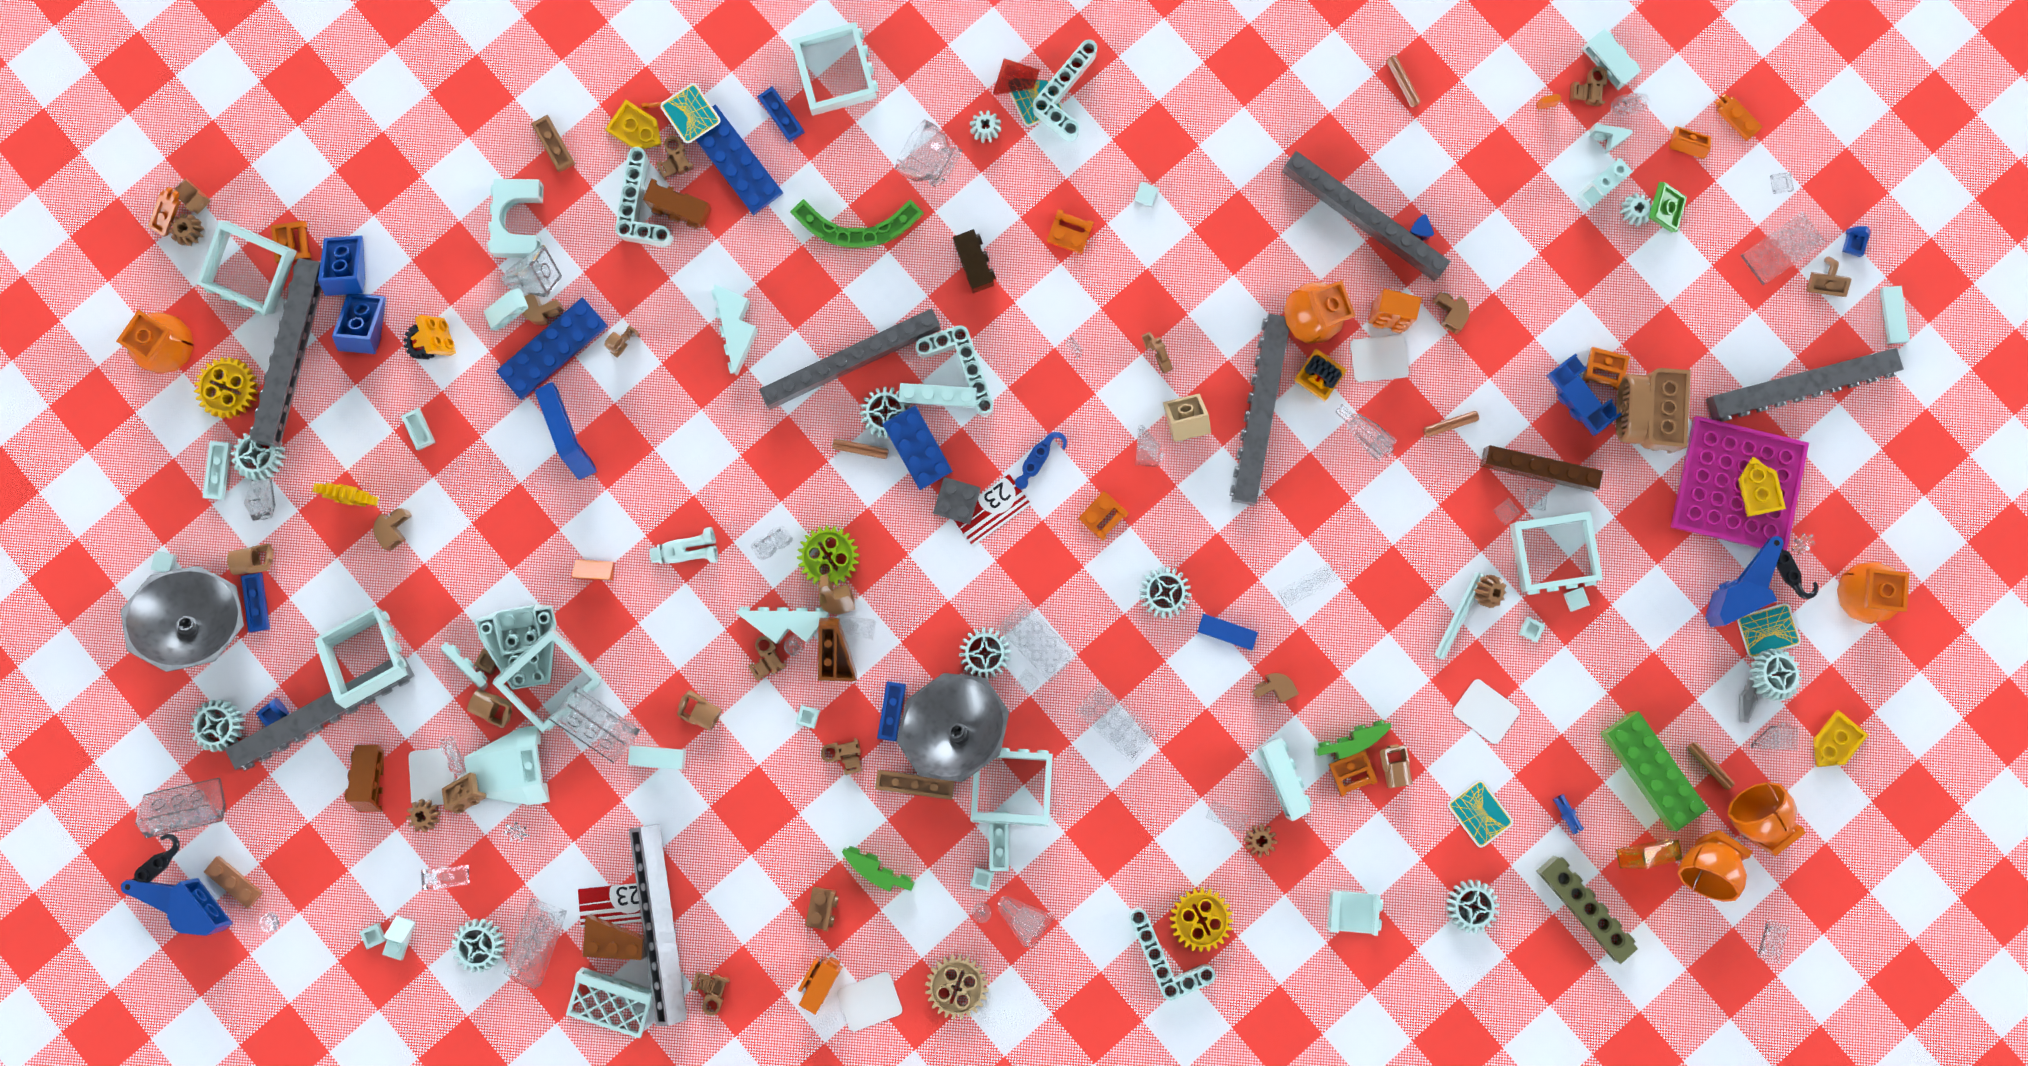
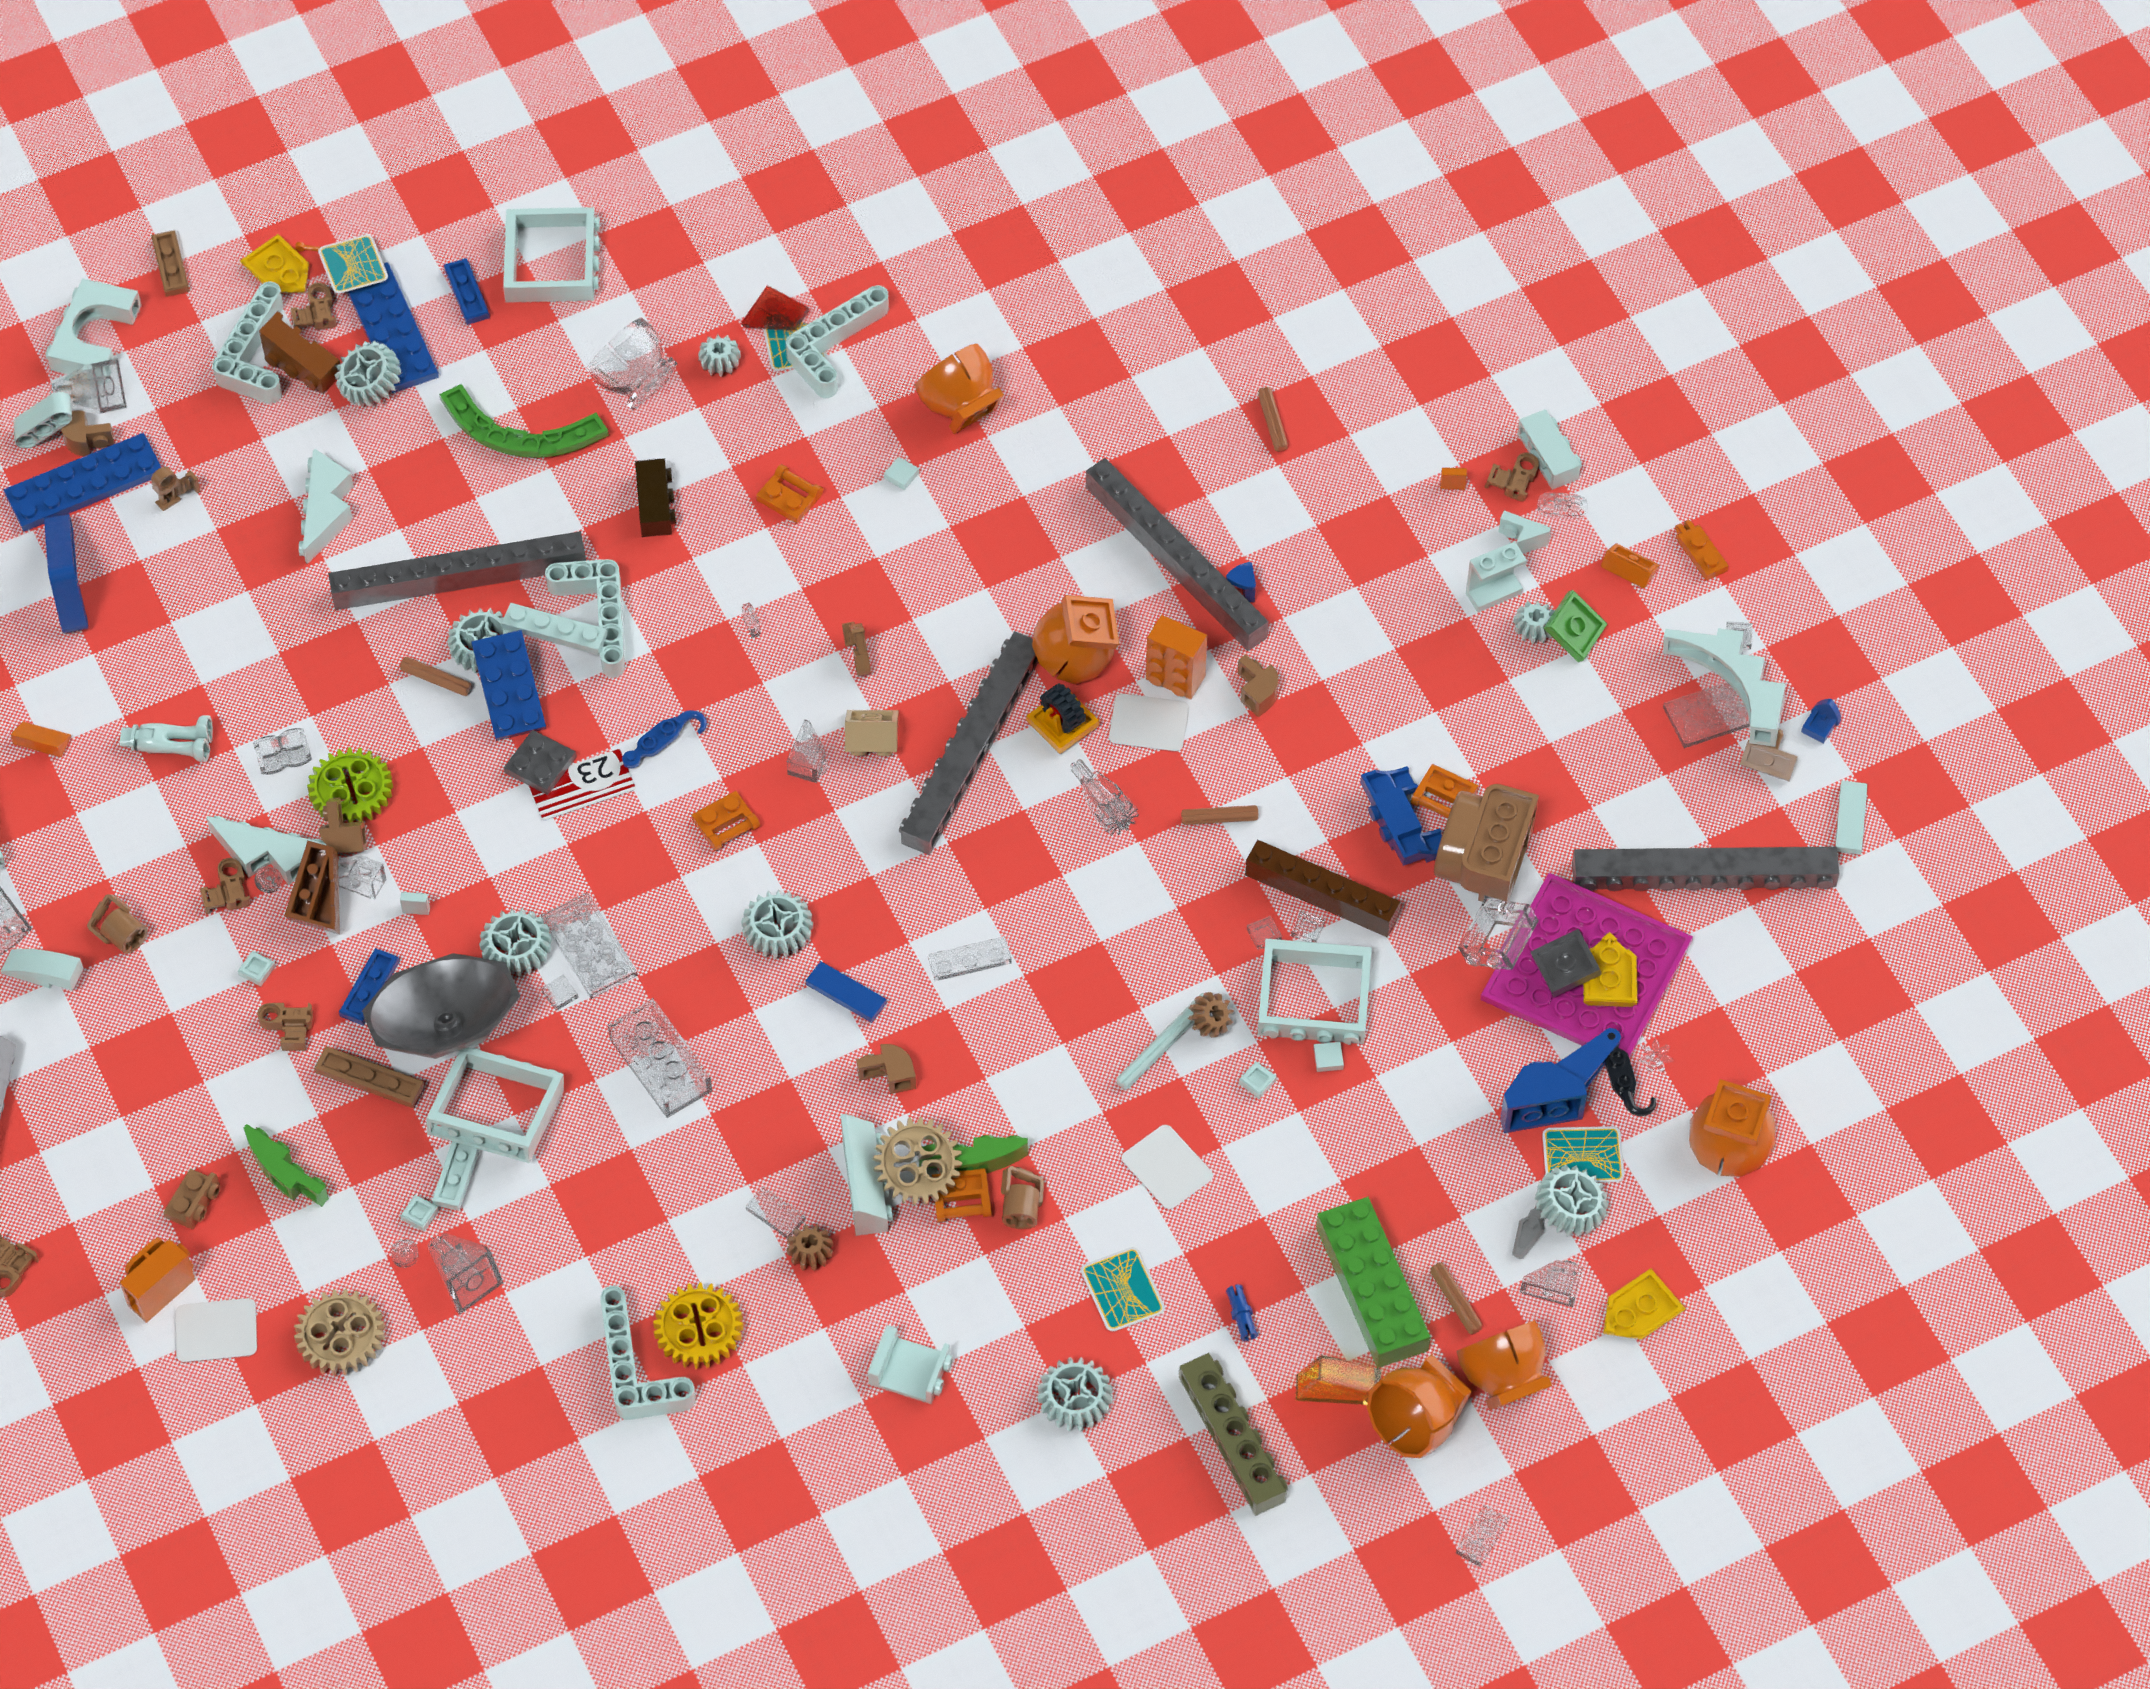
camera: 10 degrees right, 25 degrees down
(742, 218) = (368, 373): none -> light aqua gear
(904, 639) = (414, 903): none -> tile
(1175, 117) = (960, 389): none -> orange plate
(1315, 749) = (923, 1184): none -> tan gear
(1678, 459) = (1503, 913): none -> clear window
(1731, 491) = (1566, 963): none -> flat silver plate
(1780, 205) = (1743, 672): none -> light aqua arch

